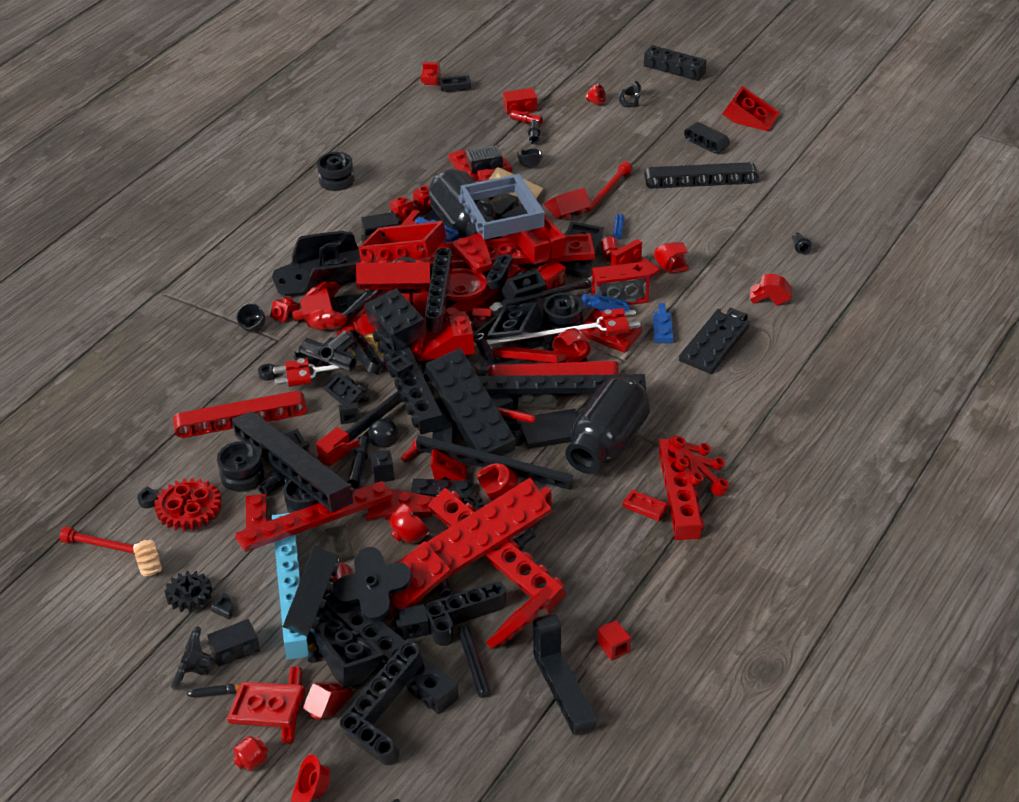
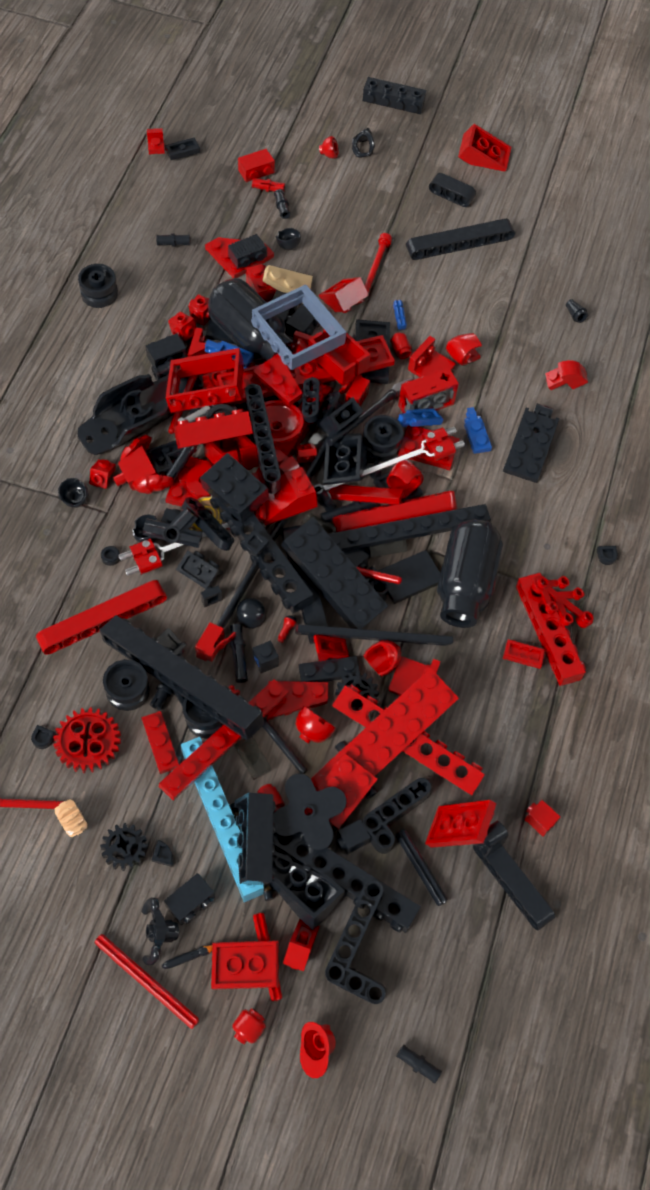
camera: 20 degrees left, 20 degrees up
(168, 702) = (147, 981): none -> red axle
(370, 534) = (284, 747): none -> black bar
(420, 147) = (173, 239): none -> black pin
(764, 440) = (607, 554): none -> black tile

